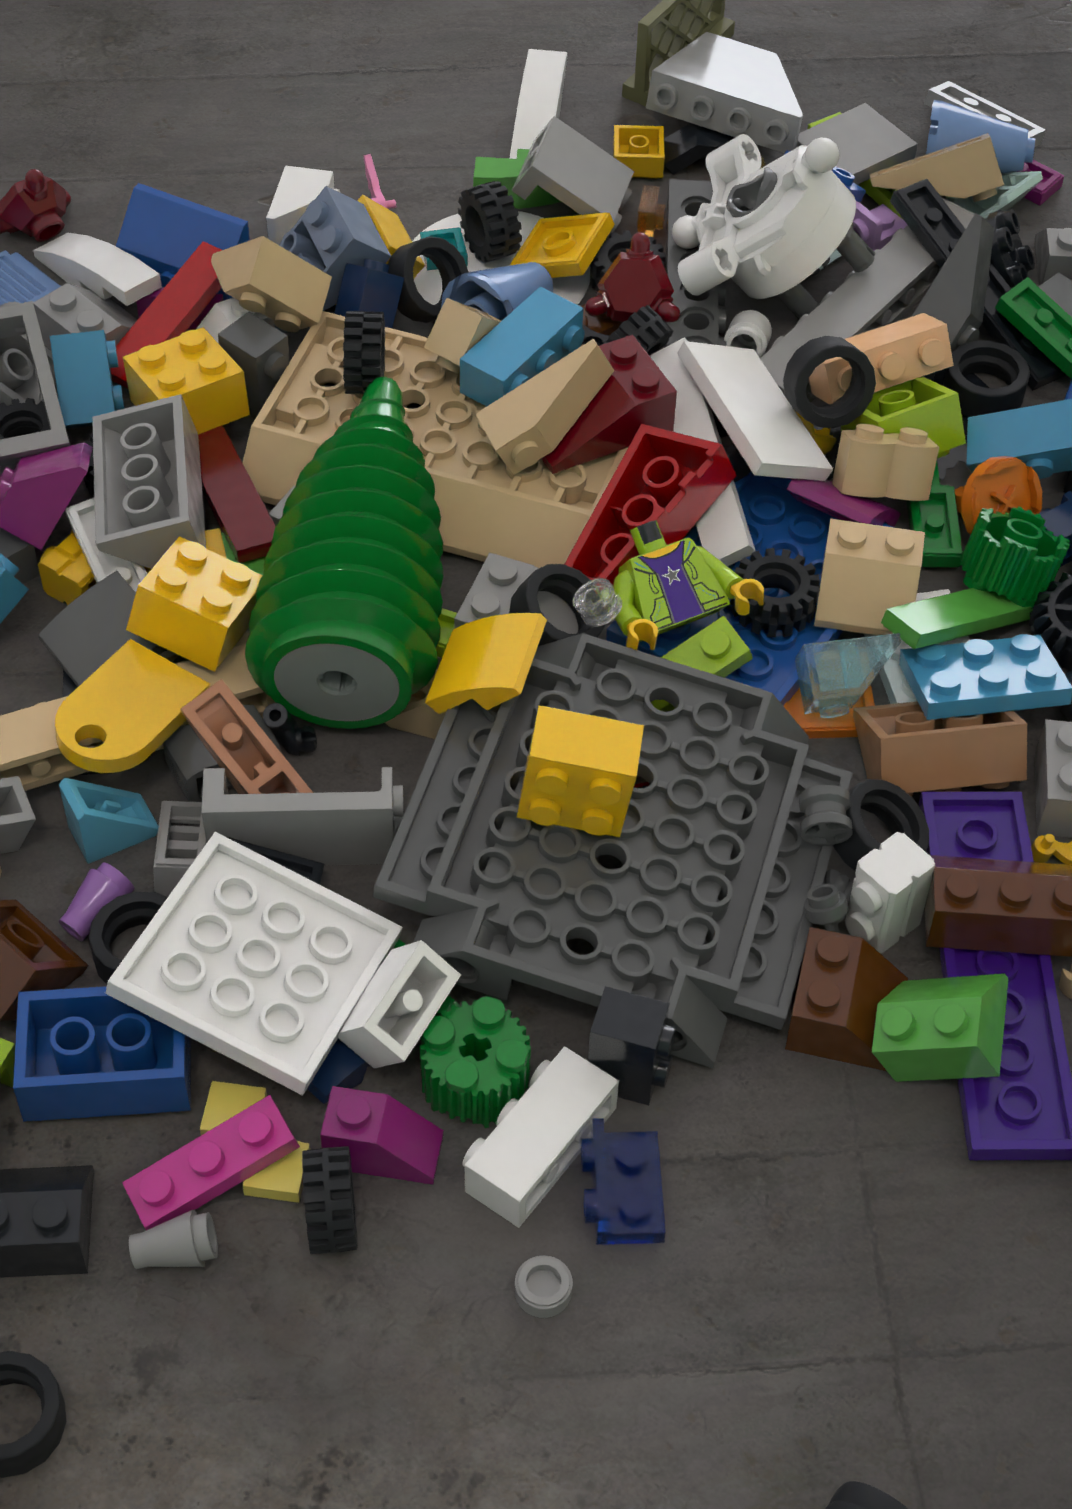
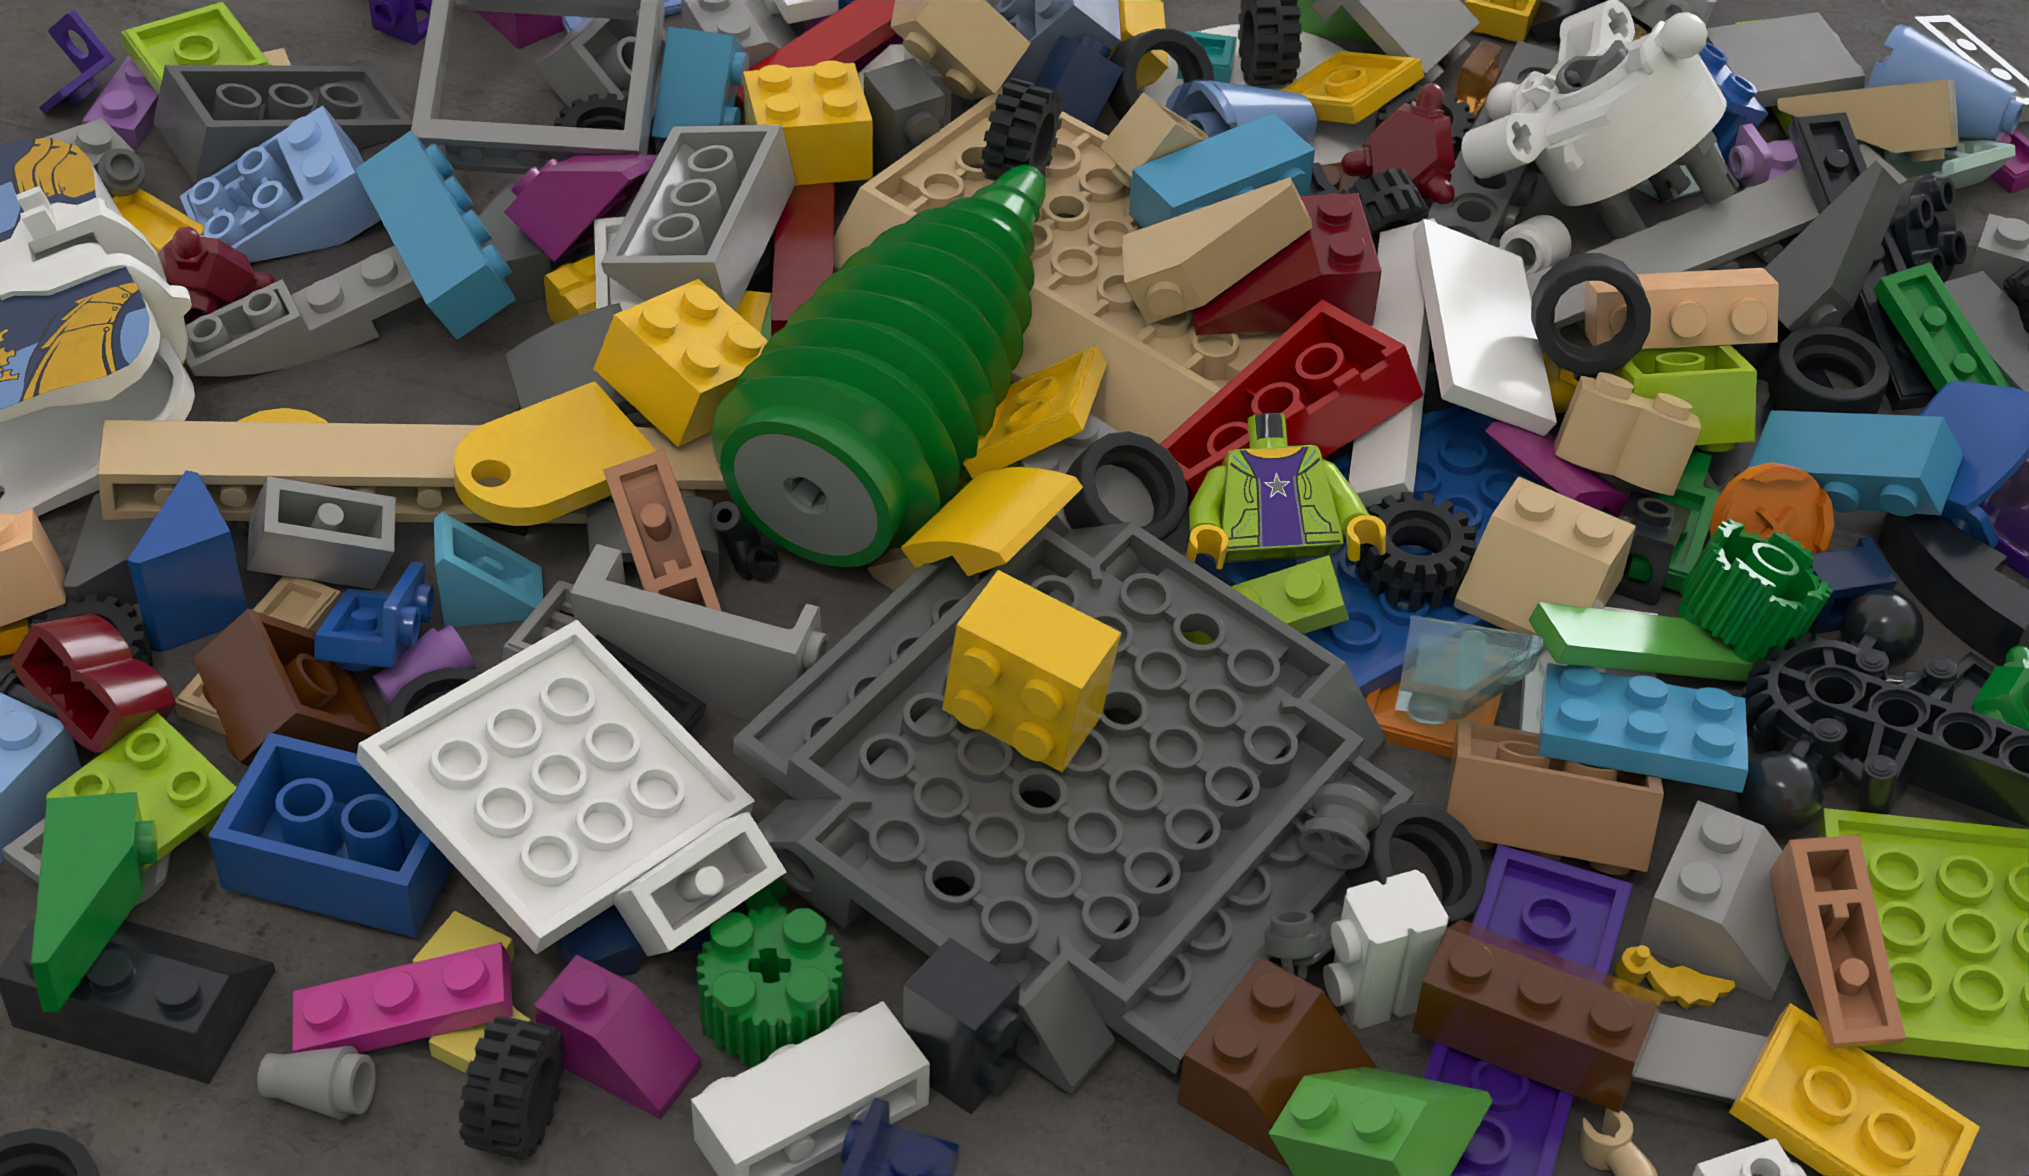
camera: 20 degrees right, 5 degrees down
(47, 880) = (376, 626): none -> blue bracket
(473, 564) = (1040, 411): none -> yellow tile
(597, 602) = (1170, 493): clear bush -> none
(931, 521) = (1655, 538): none -> black bracket

